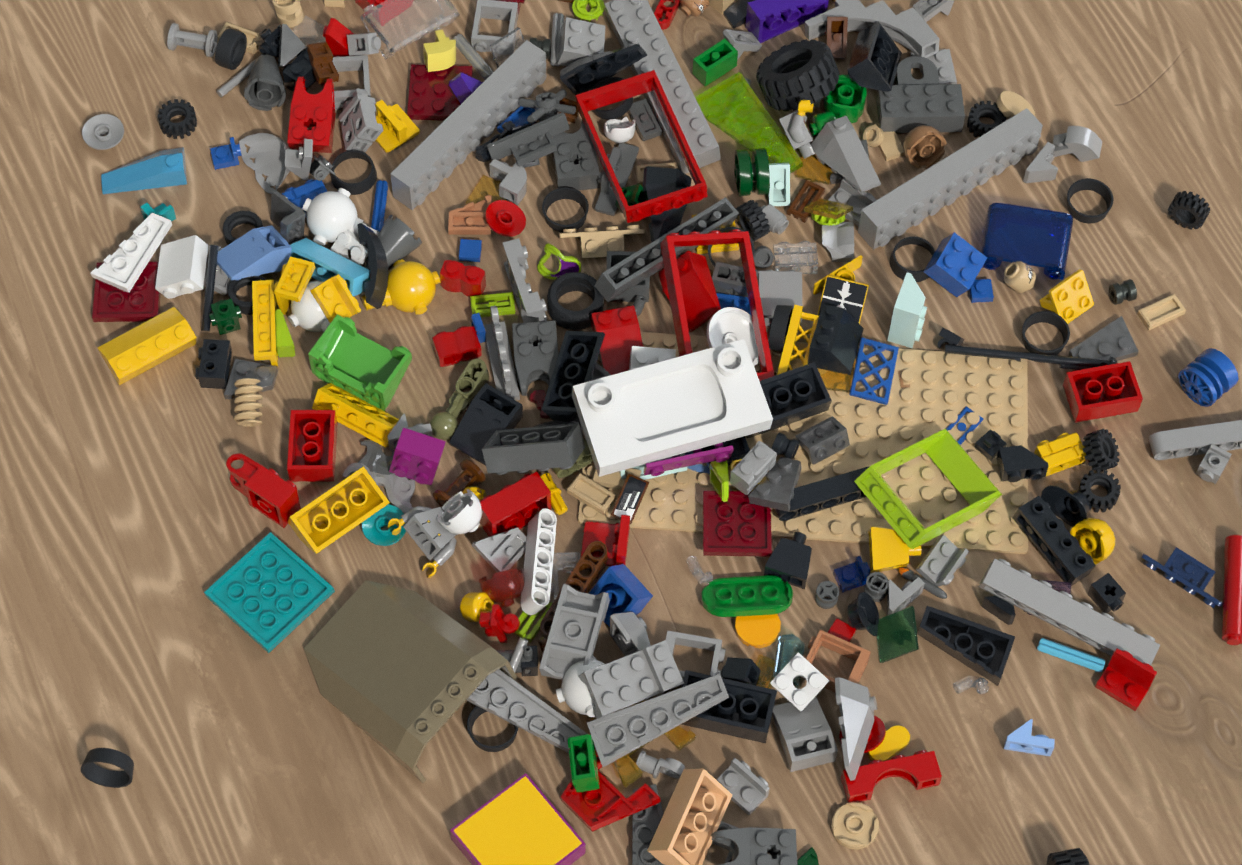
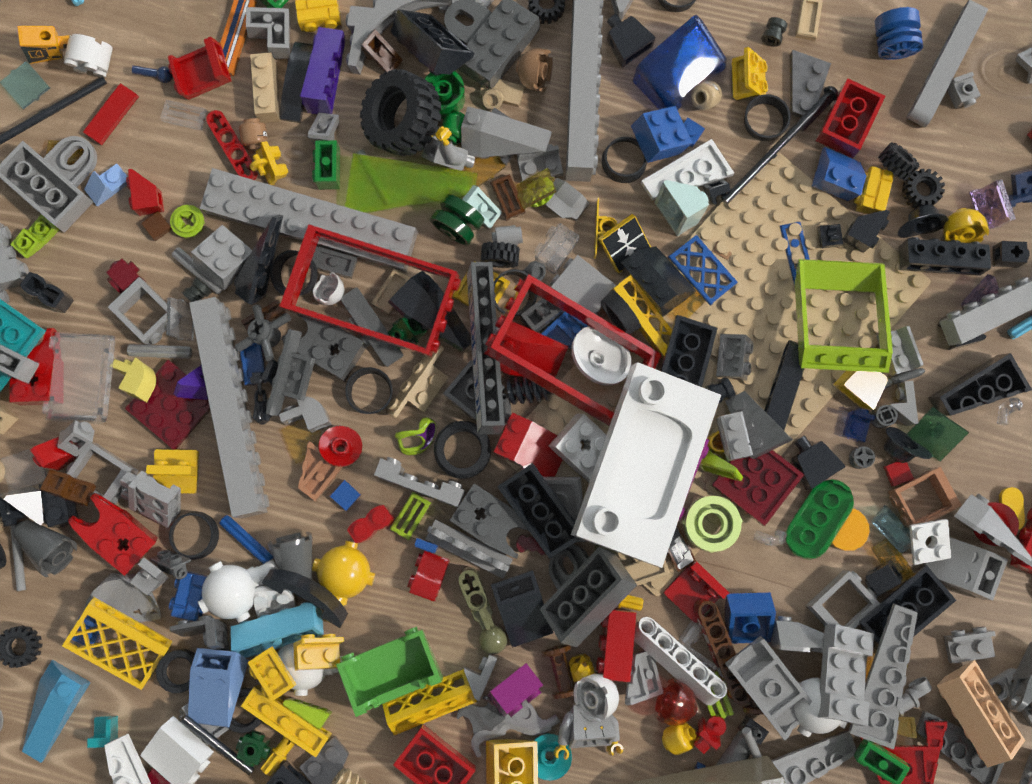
camera: 55 degrees left, 20 degrees up
(235, 337) = (277, 756): none -> yellow axle
(249, 168) = (122, 625): none -> yellow fence
(659, 310) = (528, 390): none -> black piece
(670, 492) = (730, 523): none -> yellowish green piece
(679, 23) = (265, 163): none -> yellow hips
(954, 312) = (695, 168): none -> white wing
(1013, 189) = (628, 39): none -> black torso
(1048, 415) = (839, 175): none -> blue slope
(1132, 549) = (993, 204): none -> bracket

